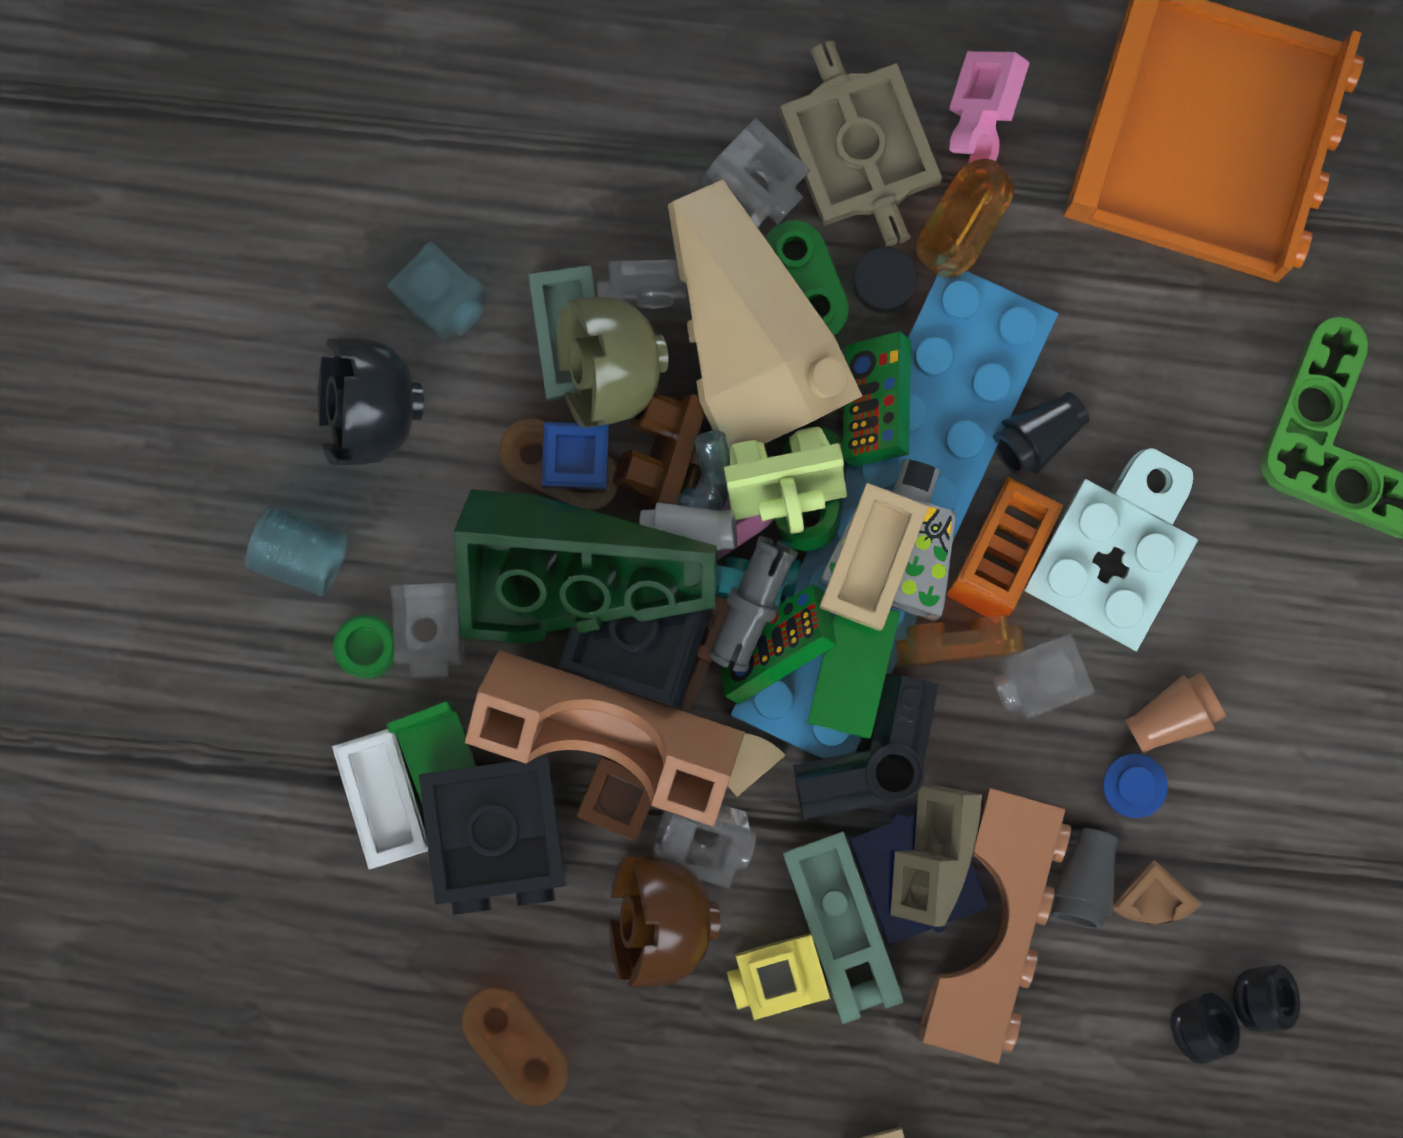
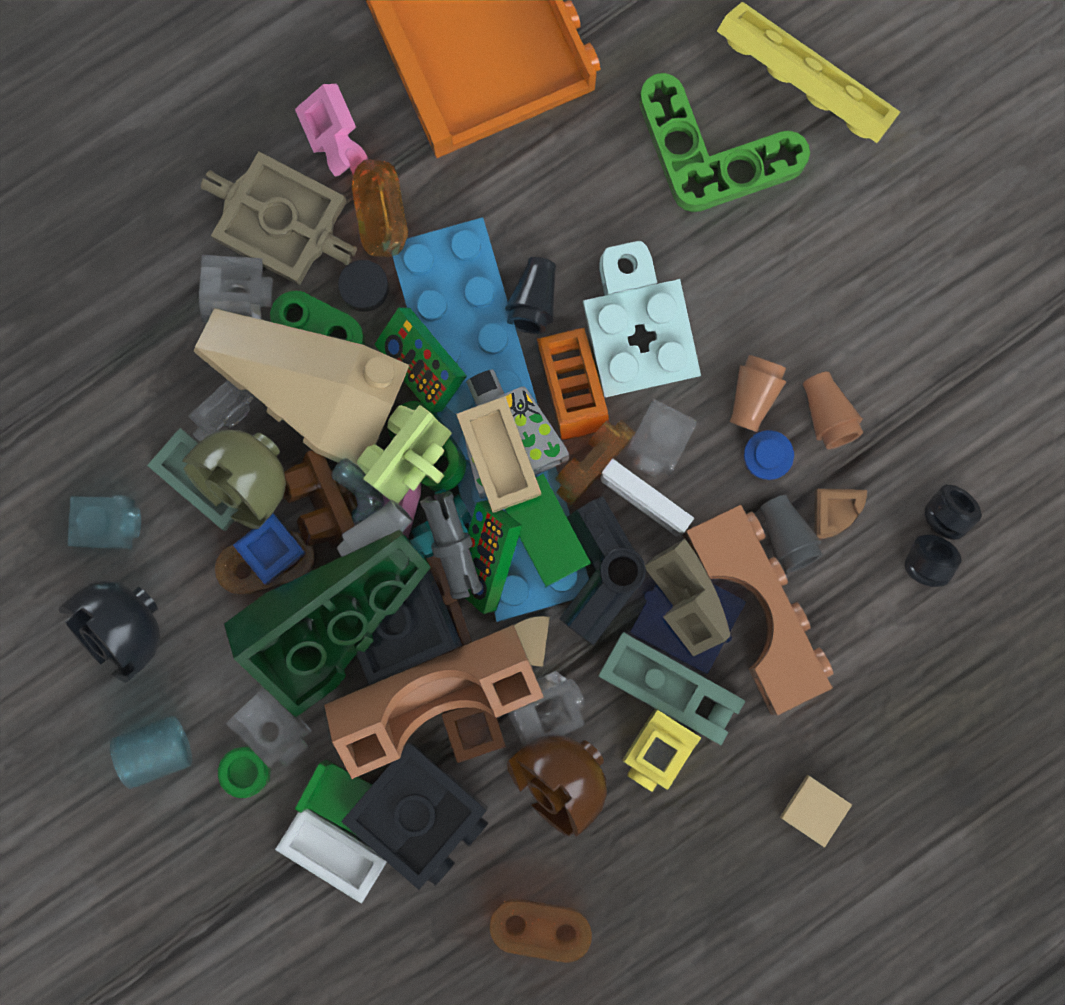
camera: 35 degrees left, 0 degrees up
(978, 723) = (646, 498): none -> white tile
(1233, 799) = (831, 412): none -> nougat cone

